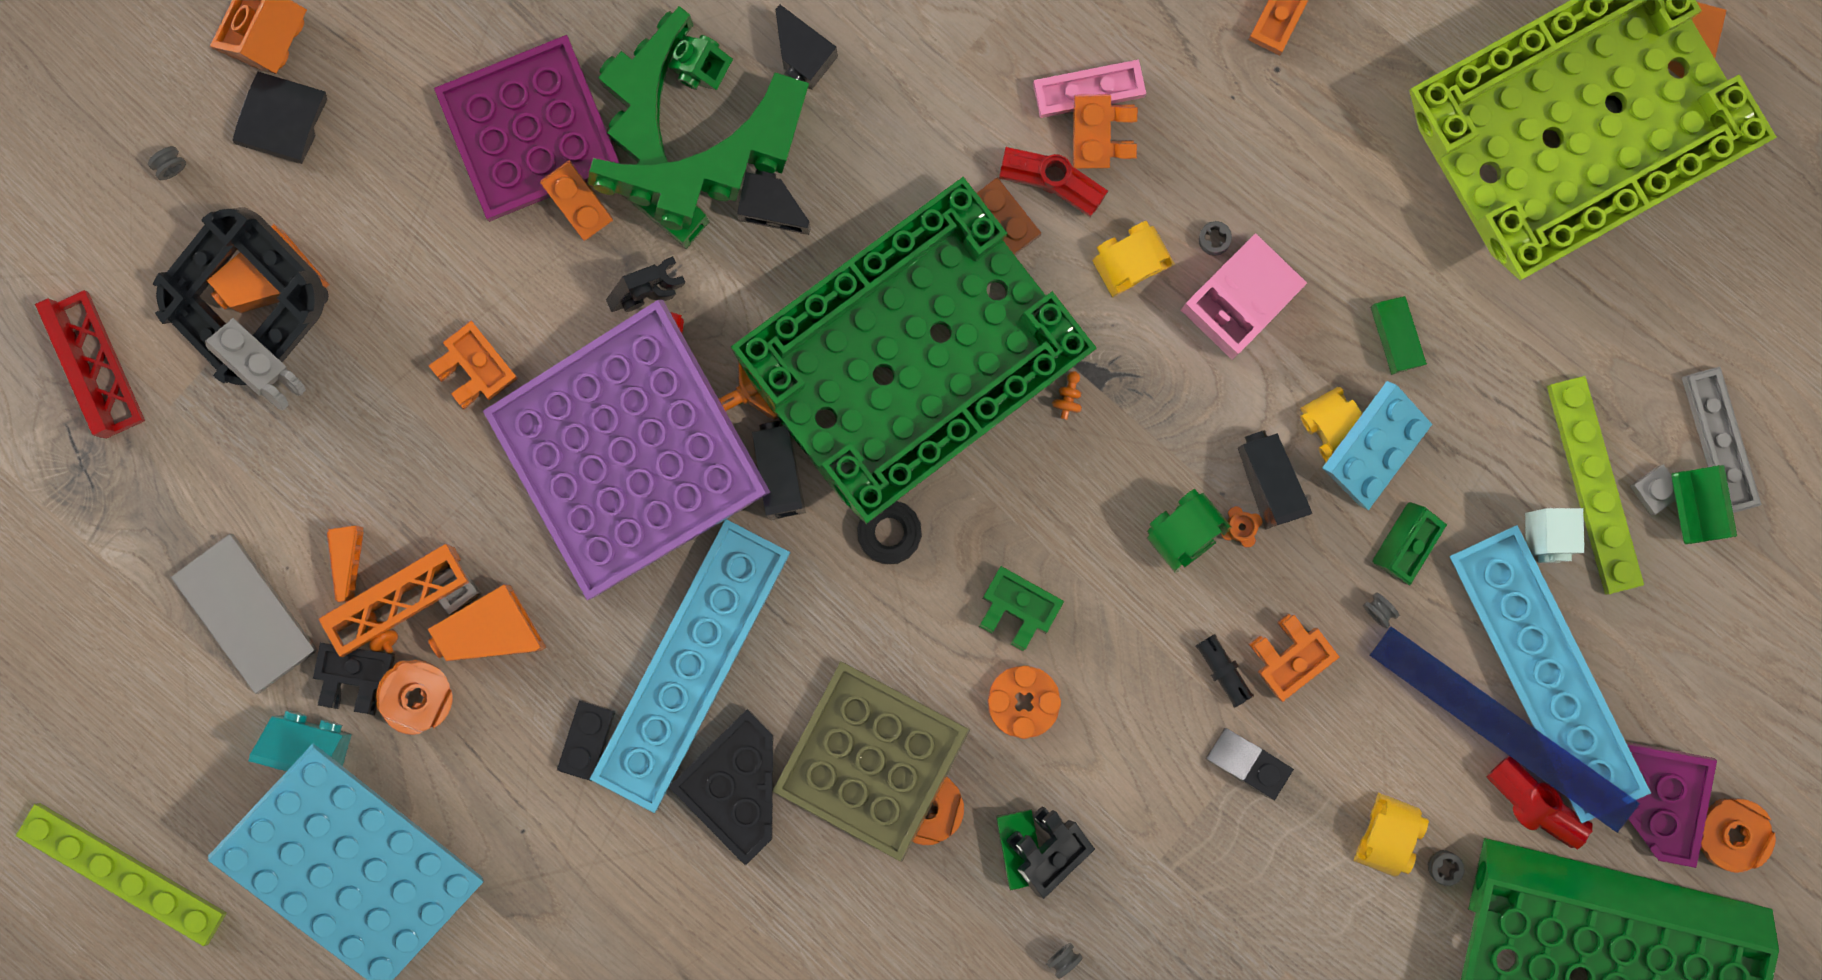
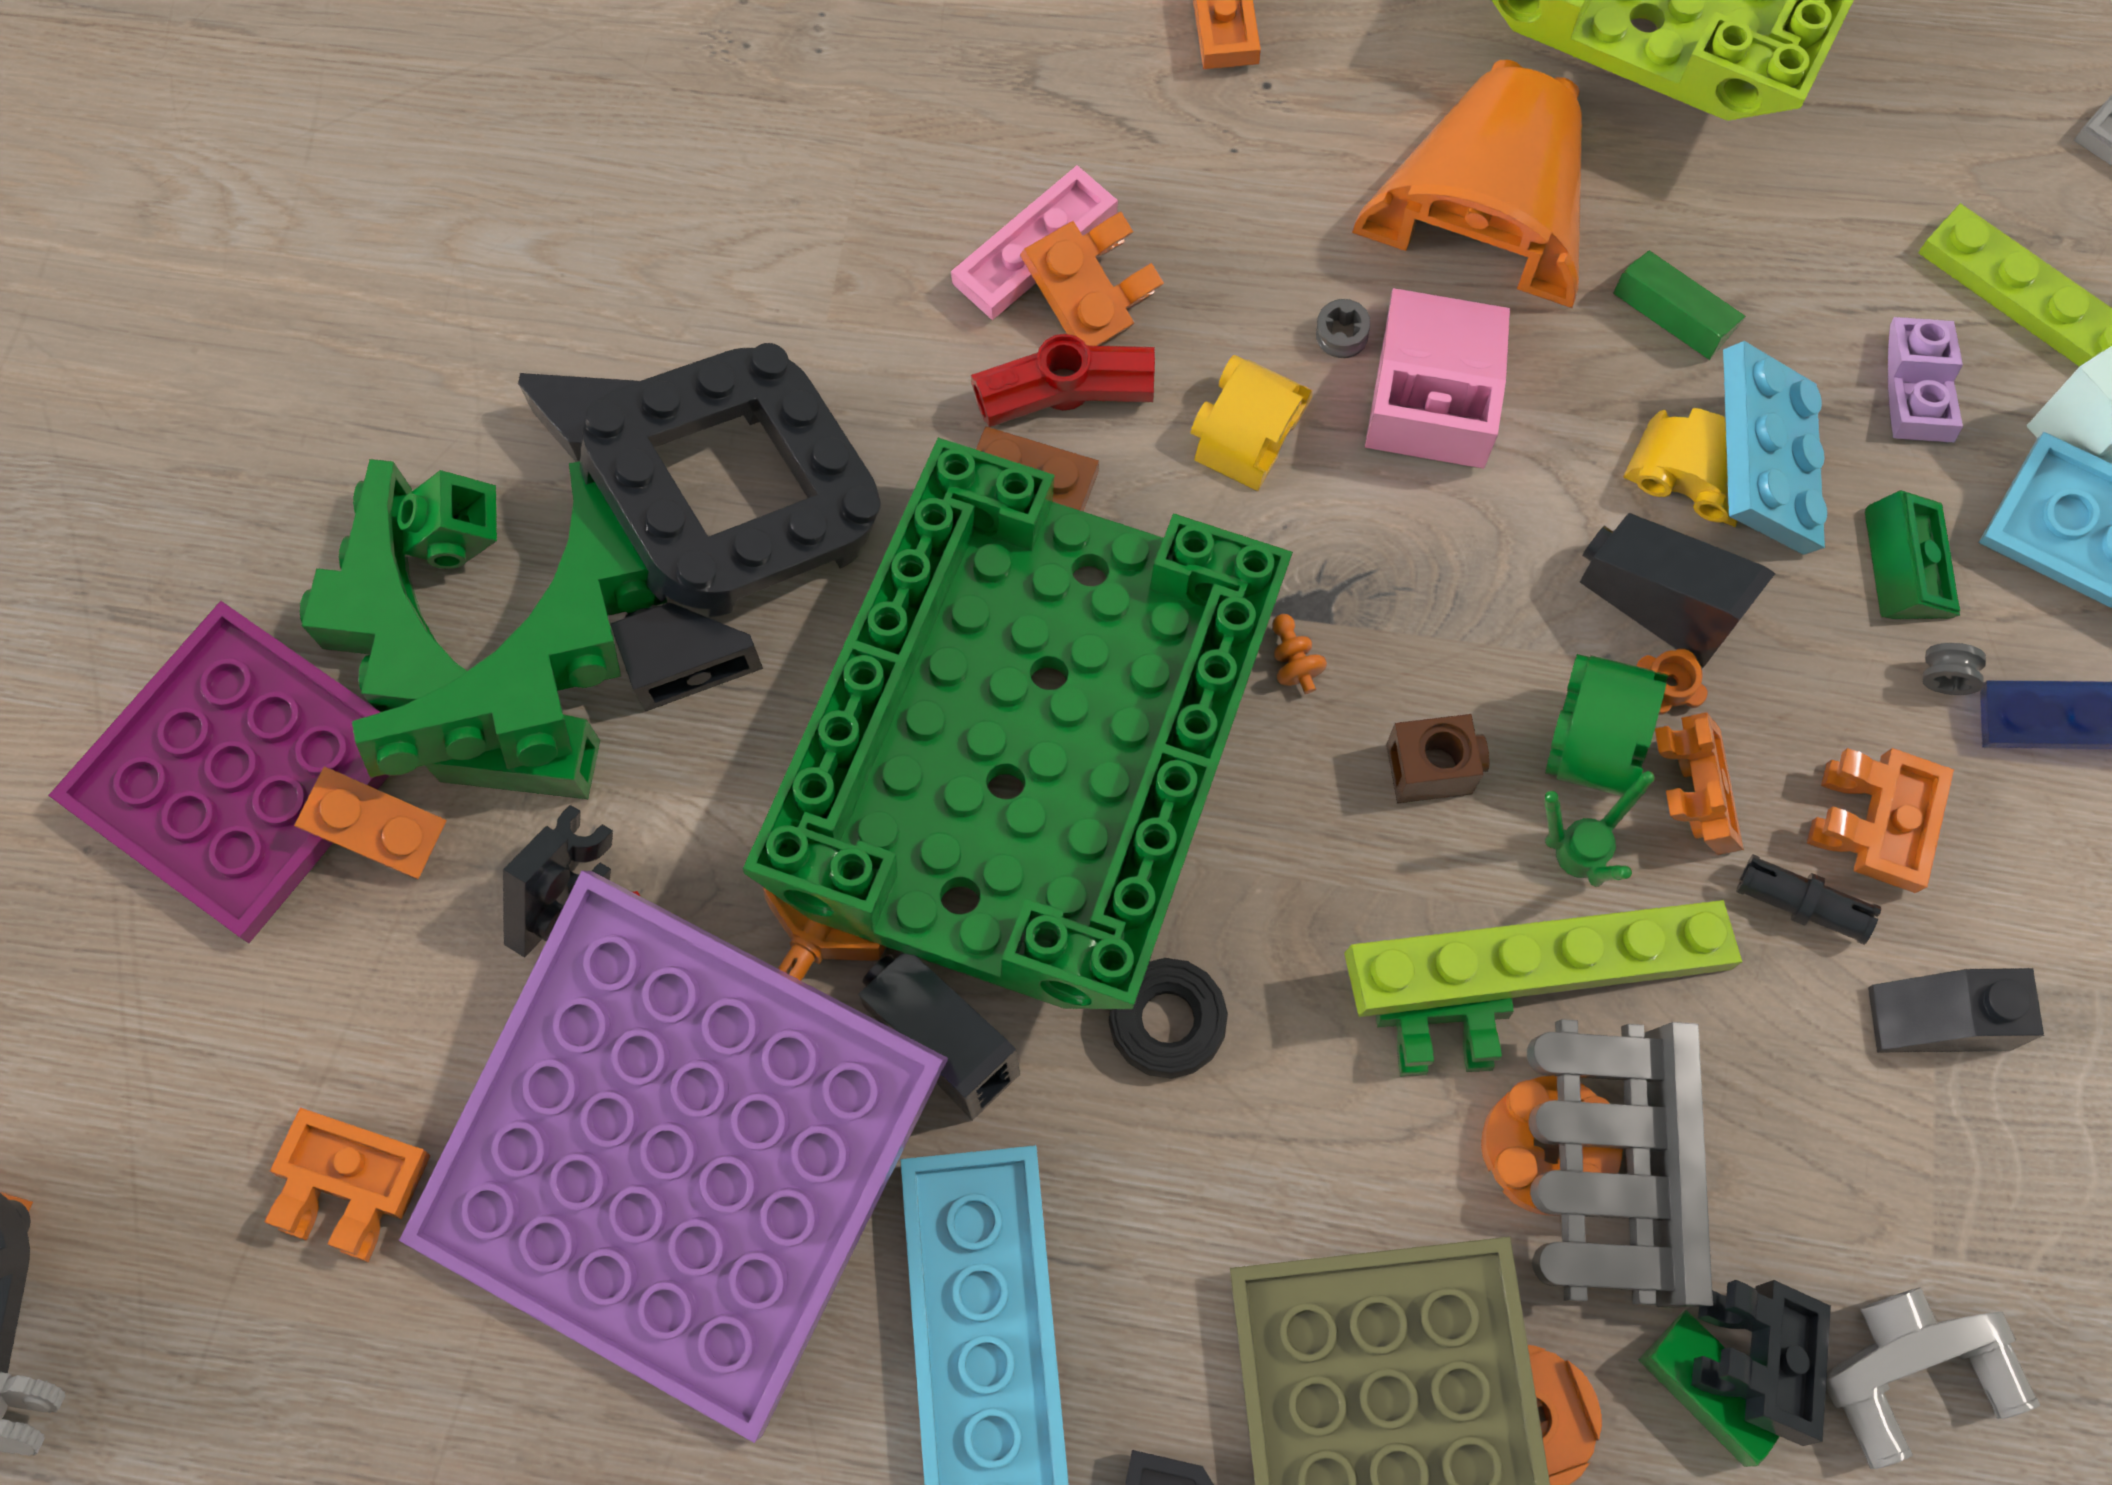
camera: 30 degrees left, 15 degrees down
(798, 130) = (656, 517): none -> black plate
(1056, 759) = (1665, 1164): none -> dark grey fence
(1078, 617) = (1541, 957): none -> lime plate
(1082, 492) = (1417, 777): none -> reddish brown brick
(1116, 885) = (1909, 1342): none -> light grey connector
(1140, 578) = (1588, 842): none -> green plant
(1225, 577) = (1712, 805): none -> orange plate
(1354, 206) = (1498, 173): none -> orange cone
(1489, 456) = (1921, 379): none -> lavender slope

